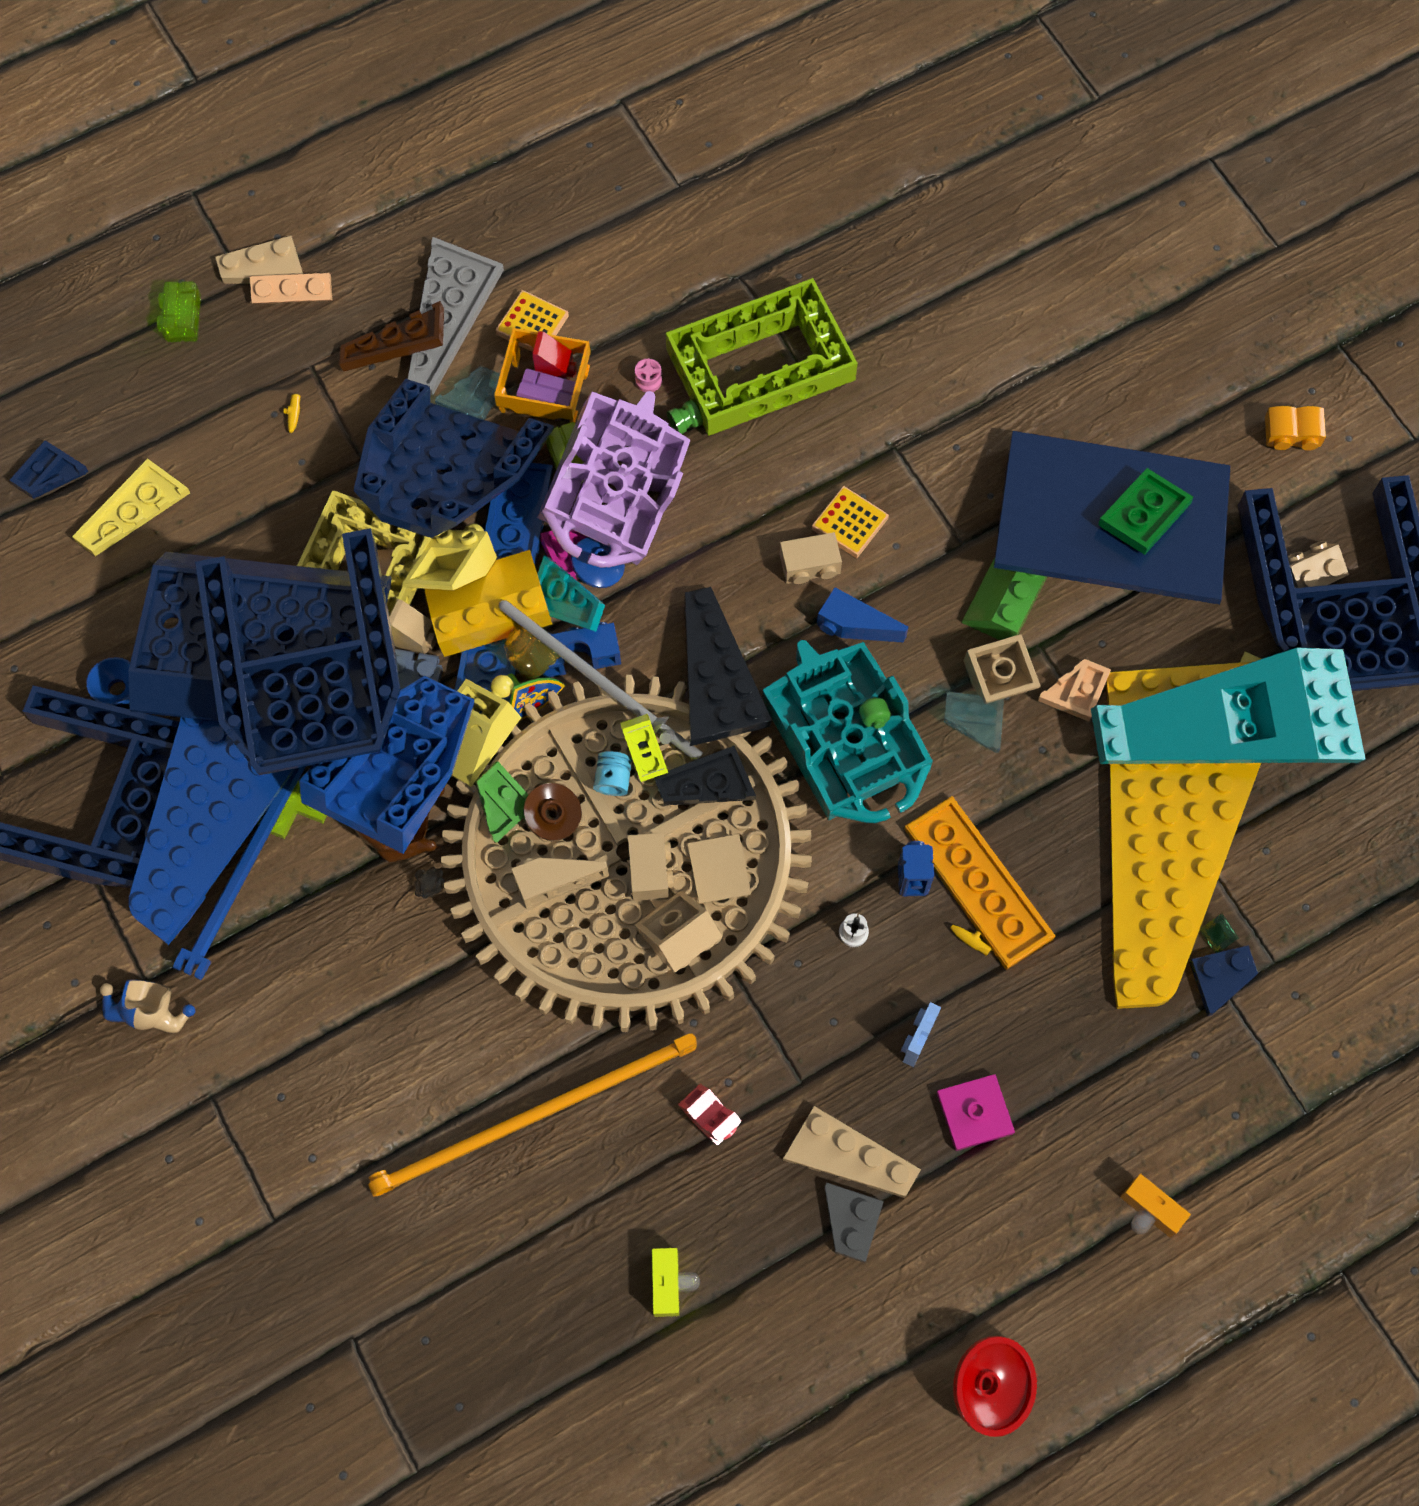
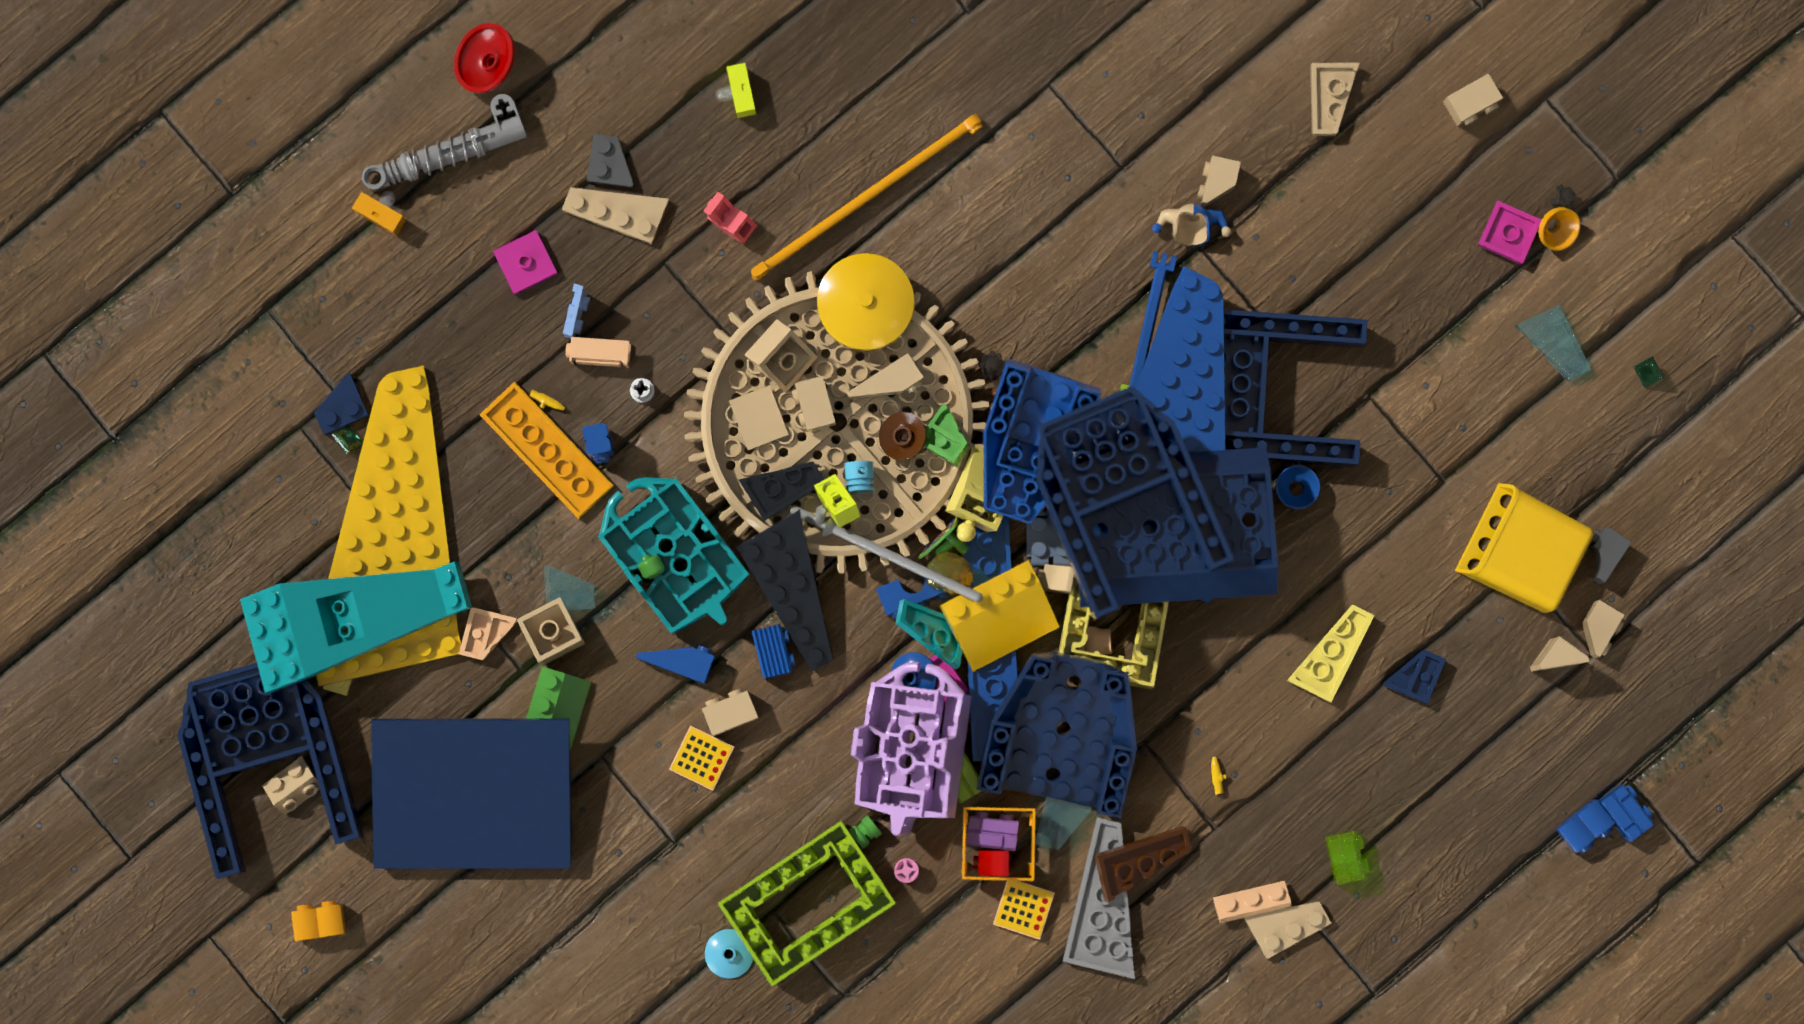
camera: 170 degrees right, 15 degrees up
(95, 1054) = (1220, 179): none -> tan slope
(453, 560) = (1034, 630): light yellow slope -> none
(562, 974) = (865, 302): none -> yellow dish
(751, 613) = (772, 651): none -> blue brick
(865, 338) = (719, 963): none -> medium azure dish
(899, 982) = (599, 352): none -> light nougat window
(1052, 1270) = (449, 152): none -> light grey piece
(1145, 511) = (443, 796): green plate -> none

